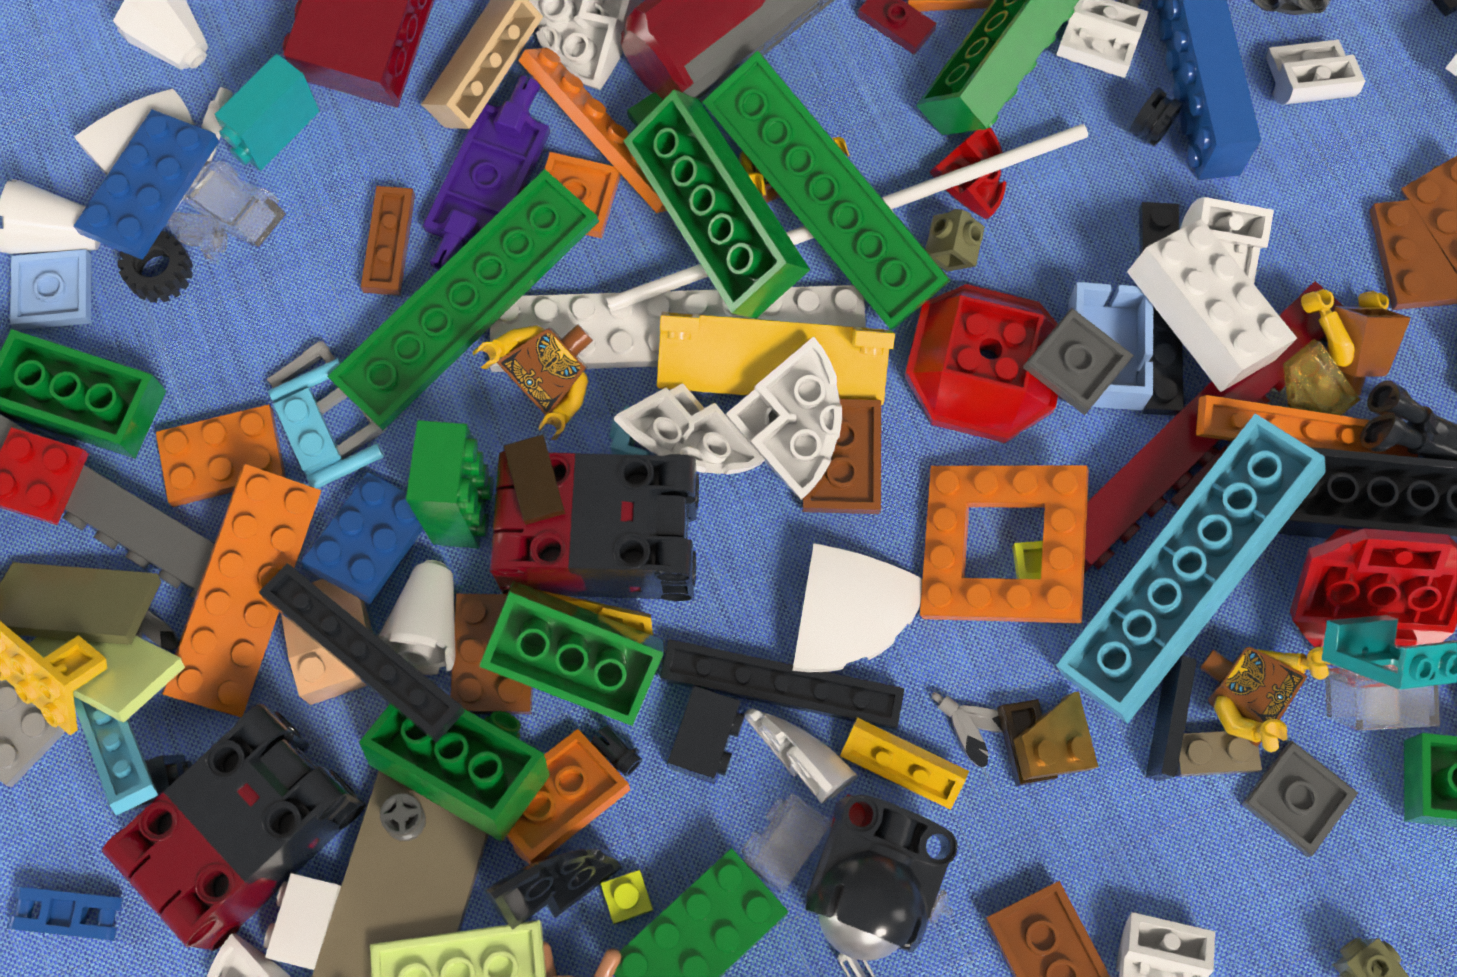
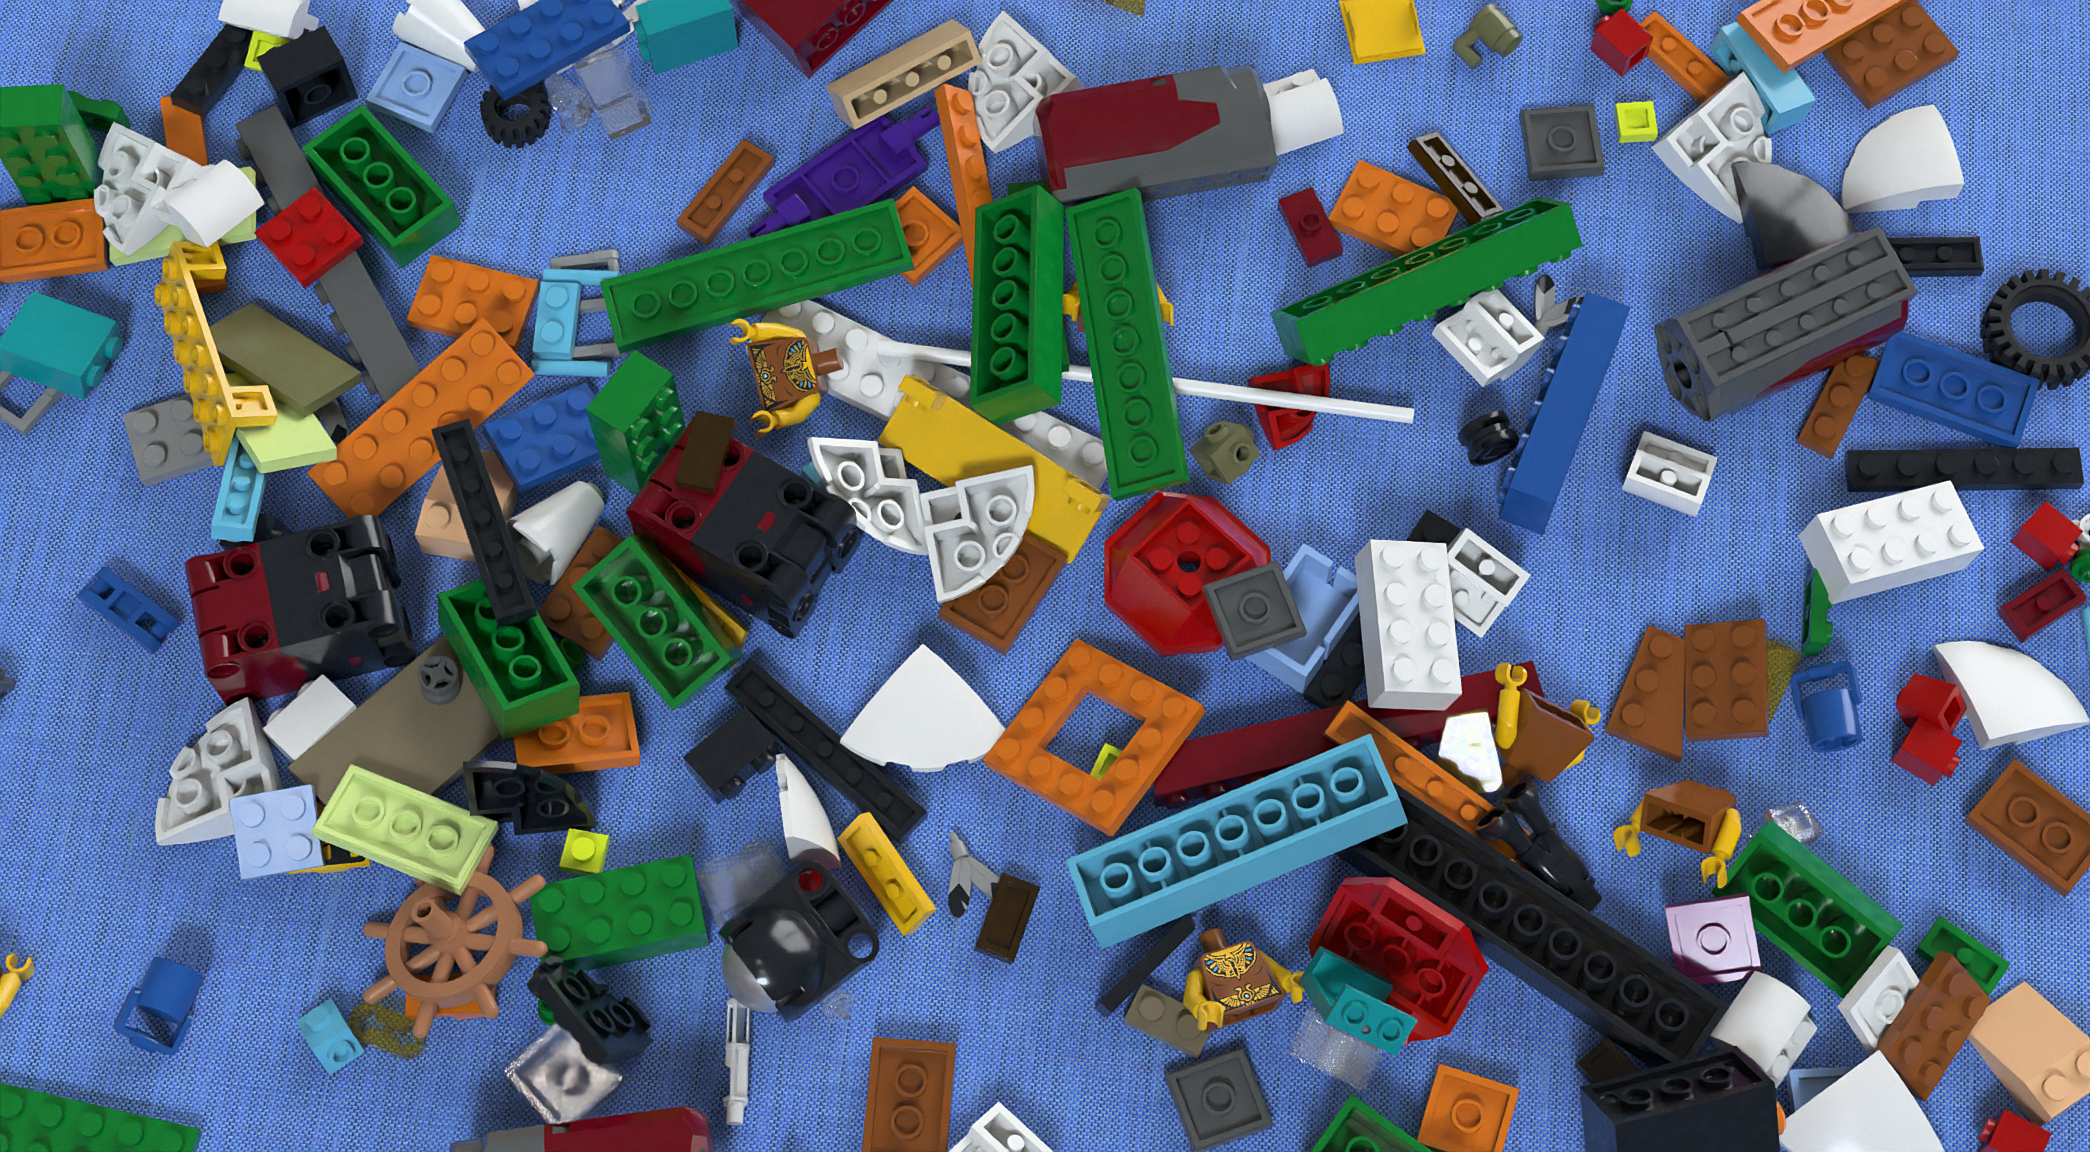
camera: 30 degrees right, 5 degrees down
(617, 751) = (652, 737): black pin -> none
(1057, 742) = (1030, 930): pearl gold wing -> none

